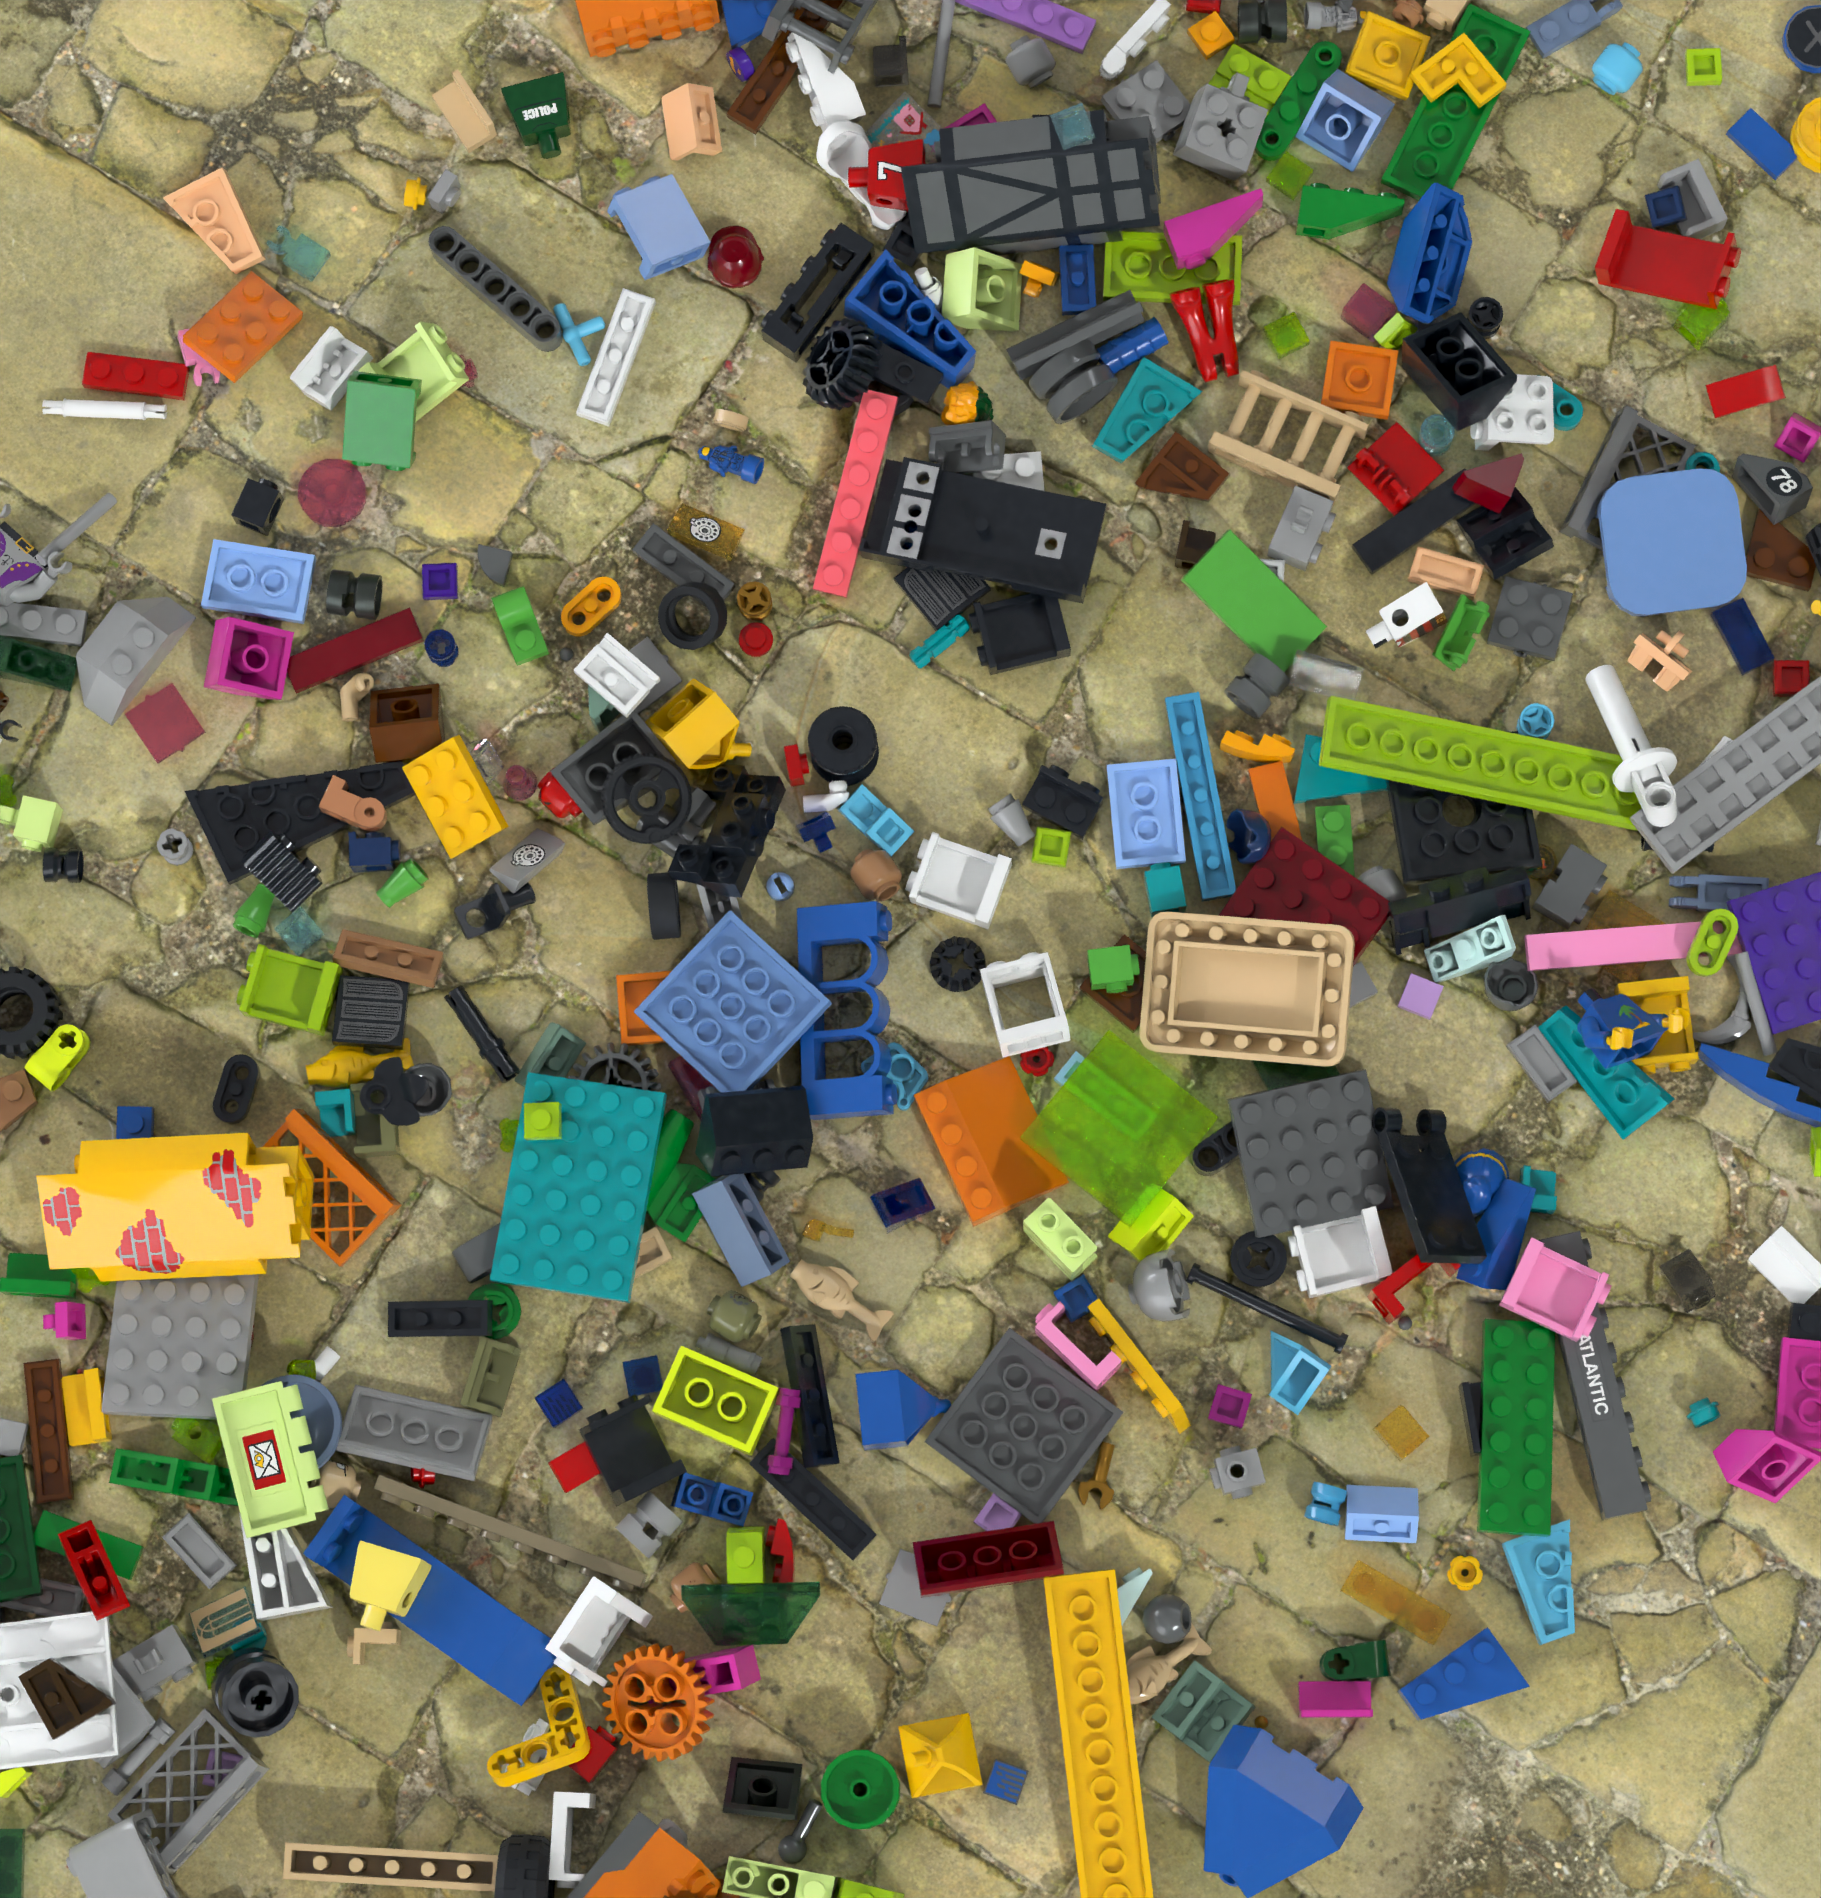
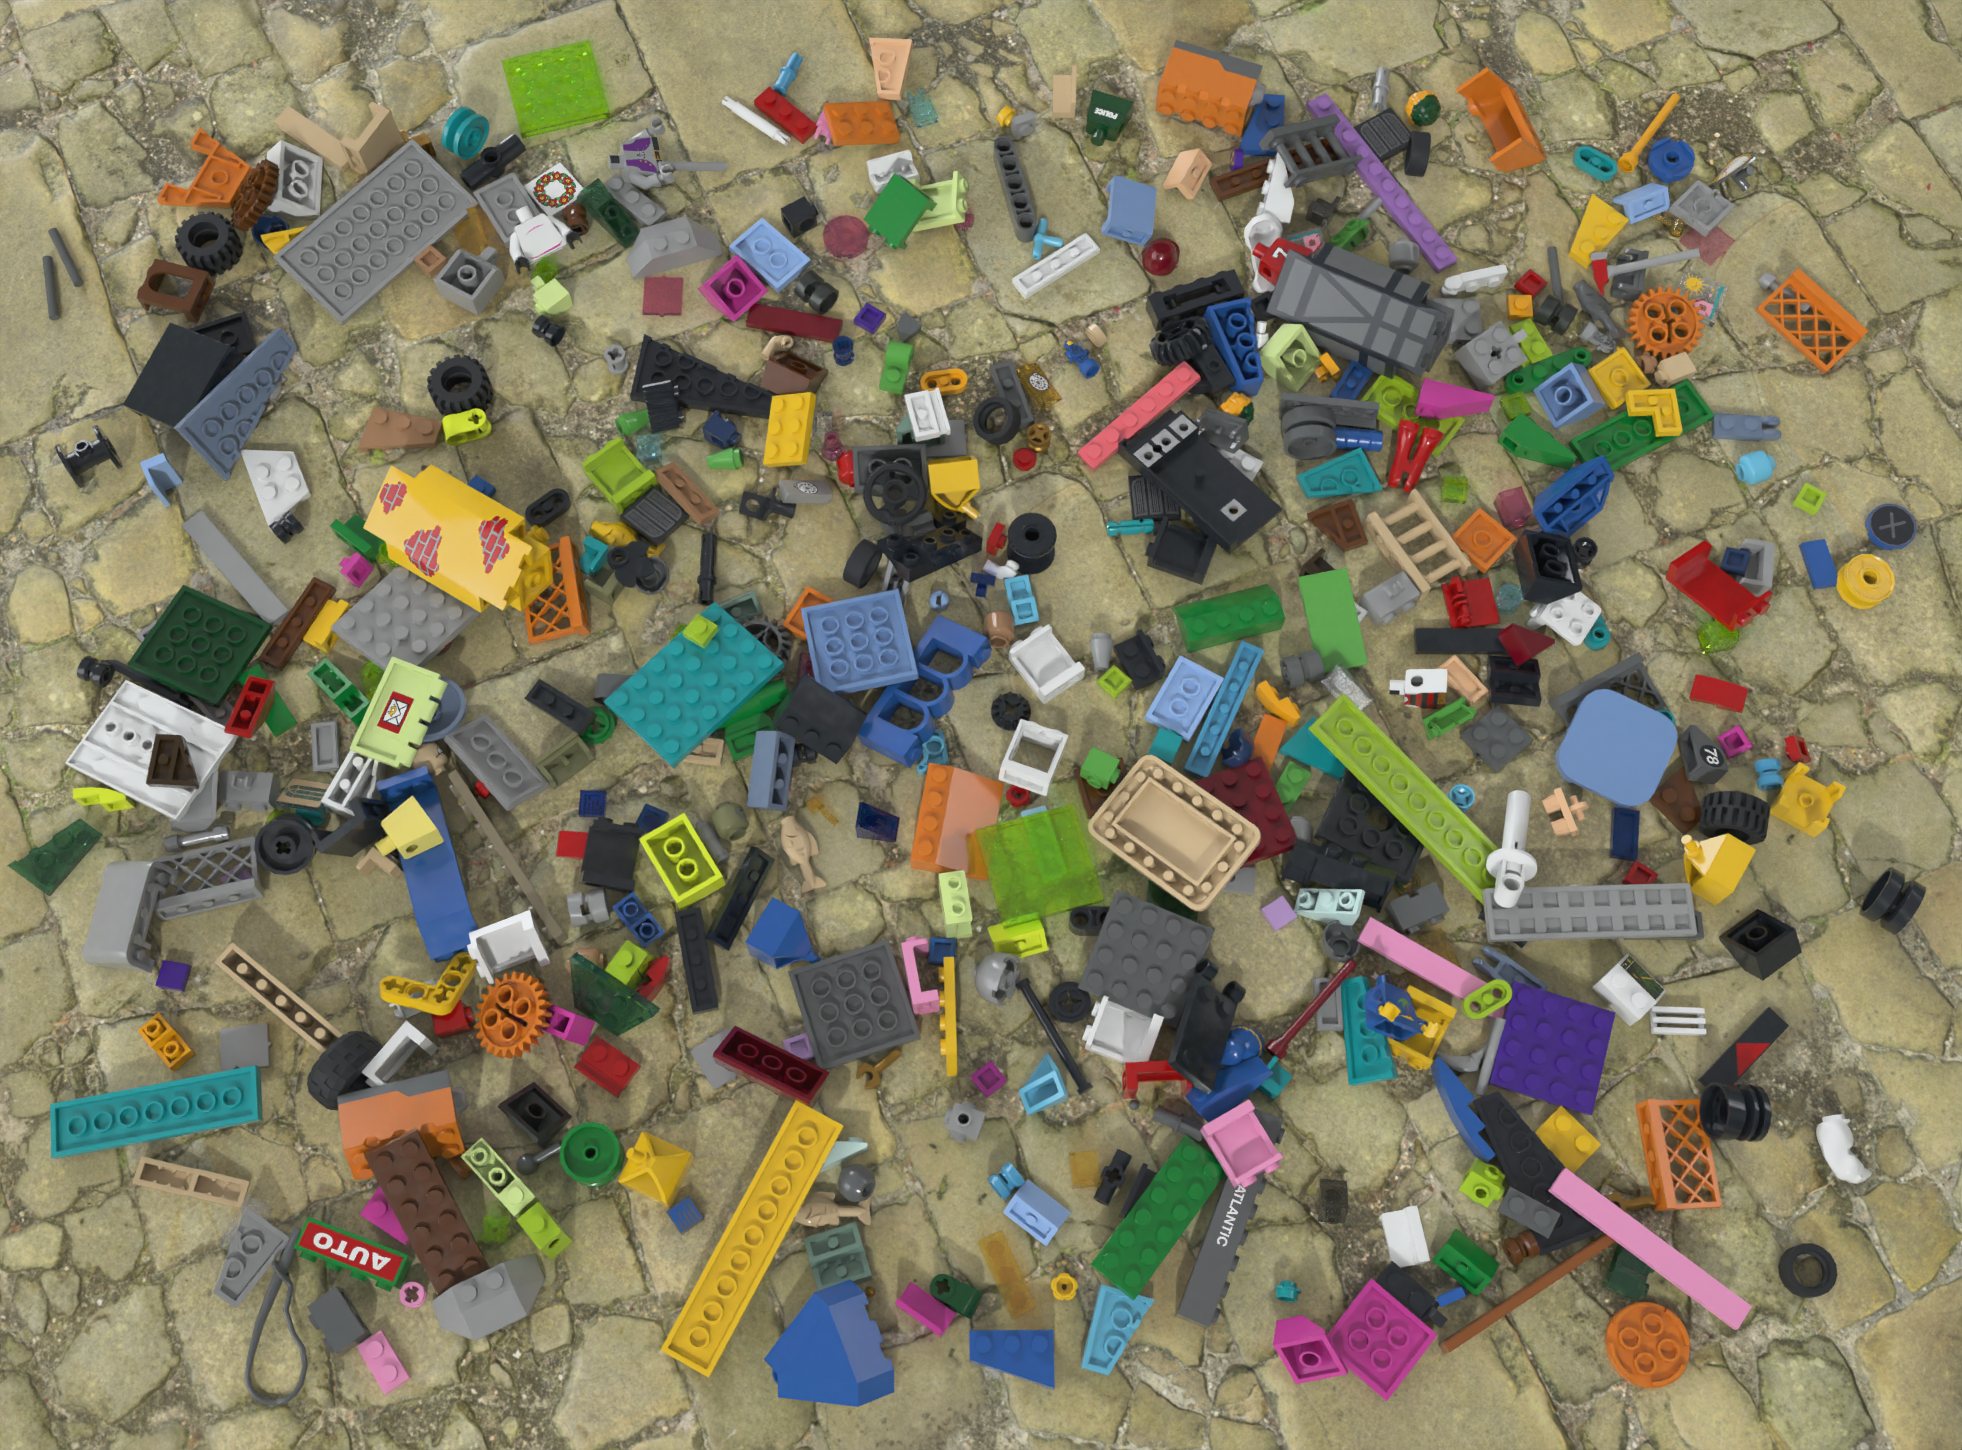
camera: 25 degrees right, 10 degrees down
(97, 317) = (788, 74): none -> dark azure axle
(256, 1130) = (539, 534): none -> yellow plate
(316, 1368) = (470, 689): arm -> none
(332, 1596) = (357, 831): none -> black panel
(362, 813) = (723, 392): nougat leg -> none
(780, 1462) = (692, 923): magenta bar -> none
(800, 1684) = (607, 1067): none -> red plate
(946, 72) = (1354, 232): none -> bright green hinge
(1072, 126) = (1406, 280): clear light blue plate -> none
(1129, 676) = (1229, 617): none -> green slope
(1394, 331) = (1520, 523): lime tile -> none
(1439, 1439) = (1106, 1190): none -> black axle
(1468, 1310) = (1178, 1123): none -> dark grey axle
(1520, 1149) = (1278, 1046): none -> dark red piece

